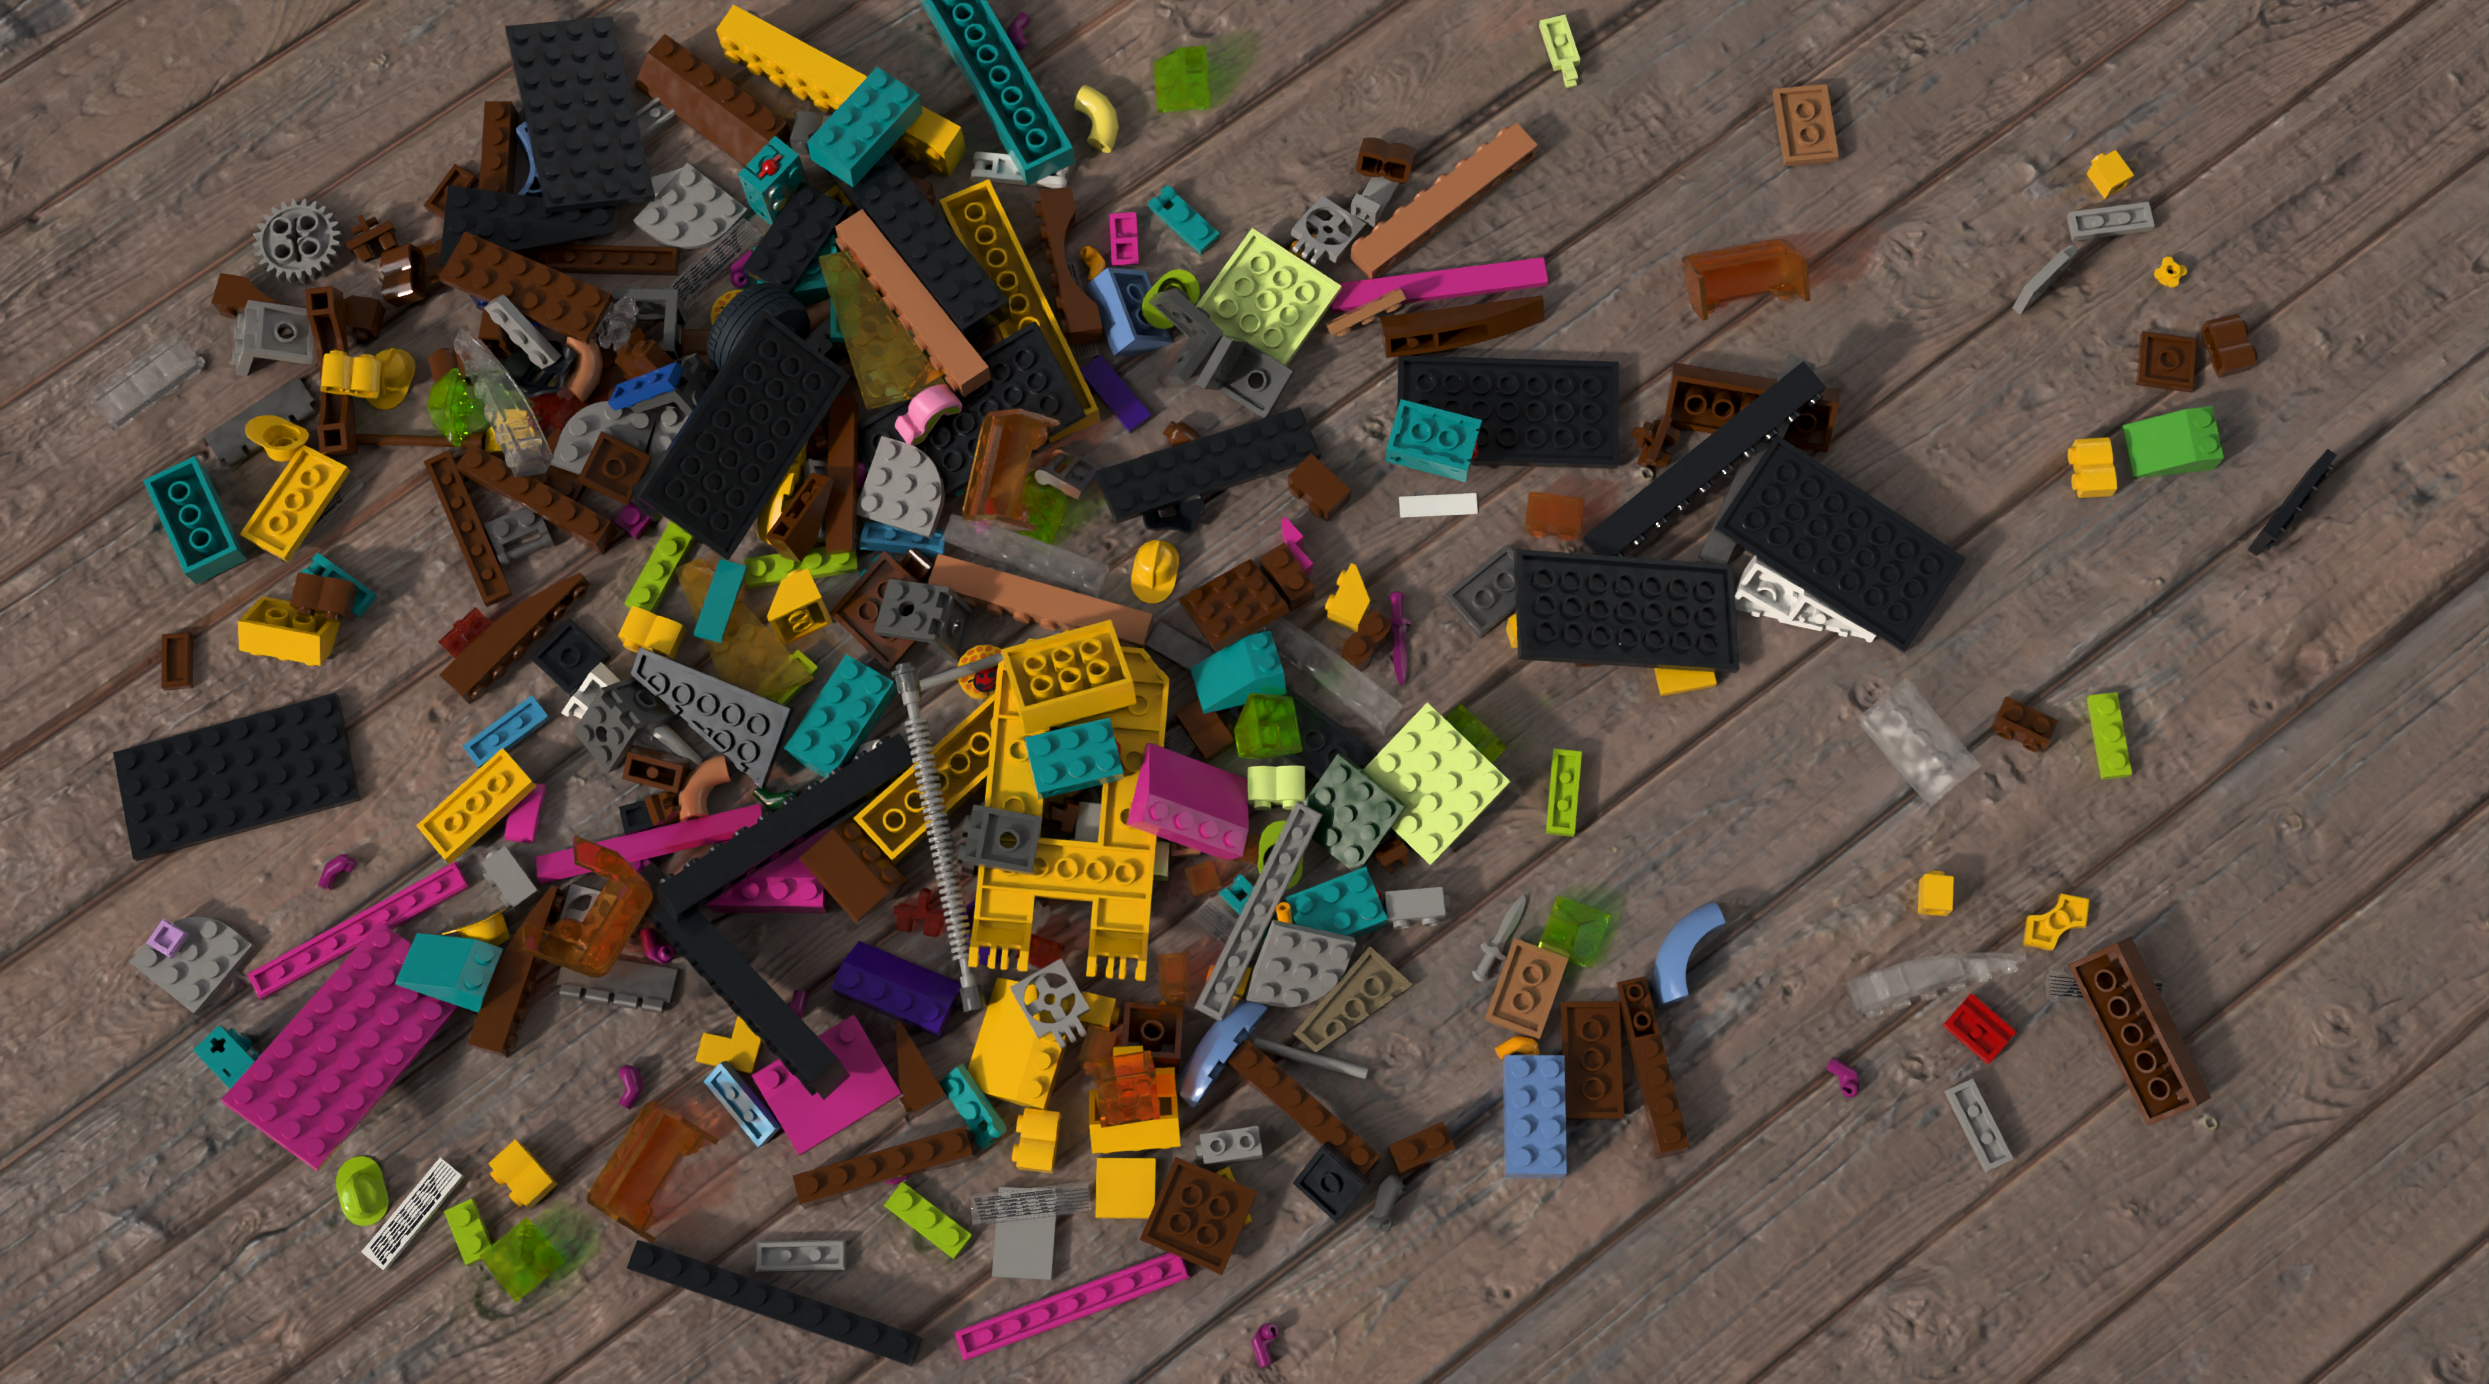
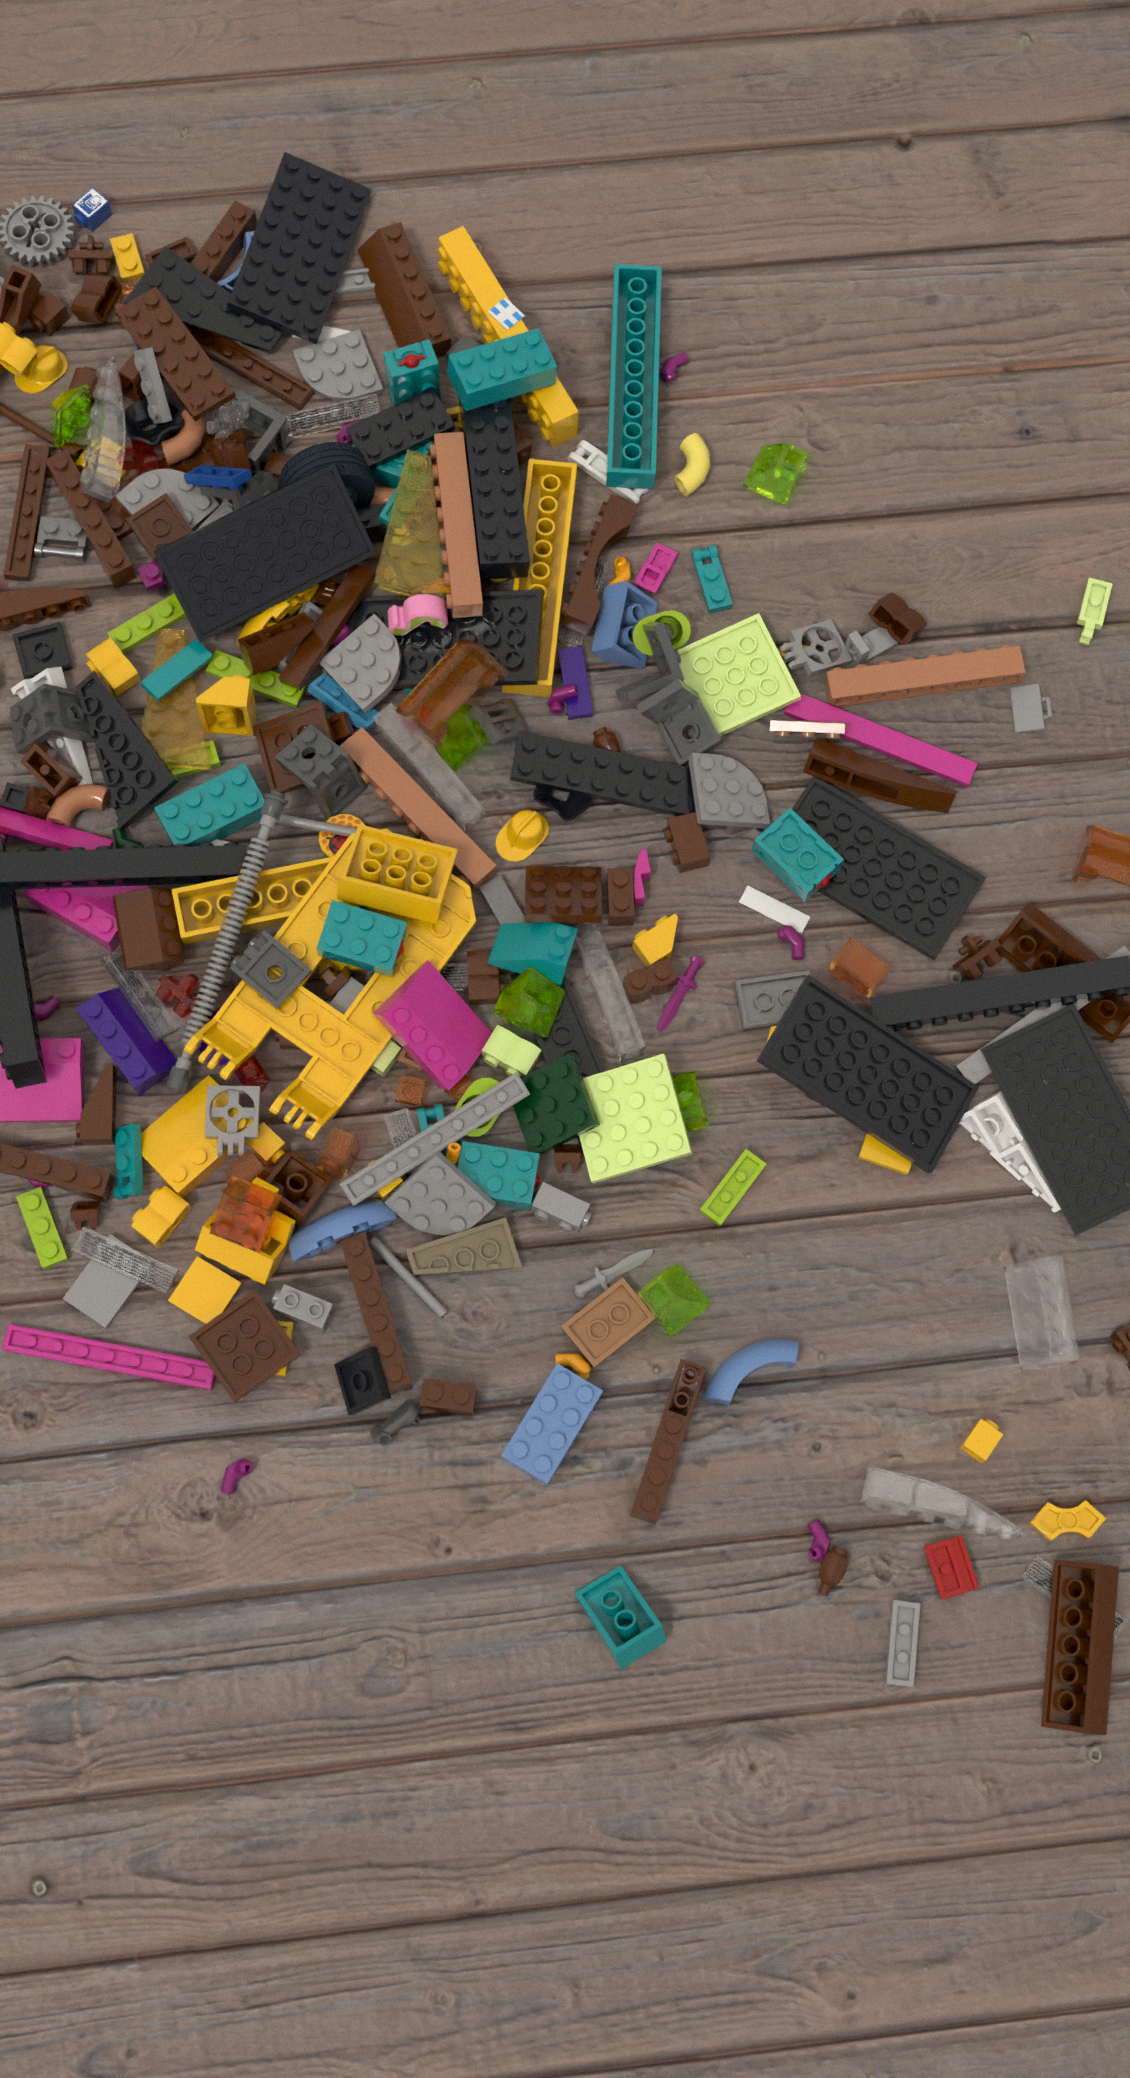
camera: 25 degrees right, 0 degrees up
(341, 189) = (92, 210): none -> blue brick
(407, 218) = (127, 258): none -> yellow plate
(830, 68) = (506, 313): none -> white sticker
(883, 939) = (141, 997): none -> clear tile
(961, 1179) = (85, 1211): none -> reddish brown tile
(1108, 416) = (559, 695): none -> magenta arm
(1327, 418) = (726, 792): none -> light grey plate
(1475, 522) = (795, 939): none -> magenta arm
(1558, 178) = (1027, 708): none -> light grey piece
(1592, 1060) = (625, 1408): reddish brown plate -> none
(1709, 1257) = (621, 1617): none -> teal slope
(1873, 1095) = (832, 1569): none -> reddish brown plant

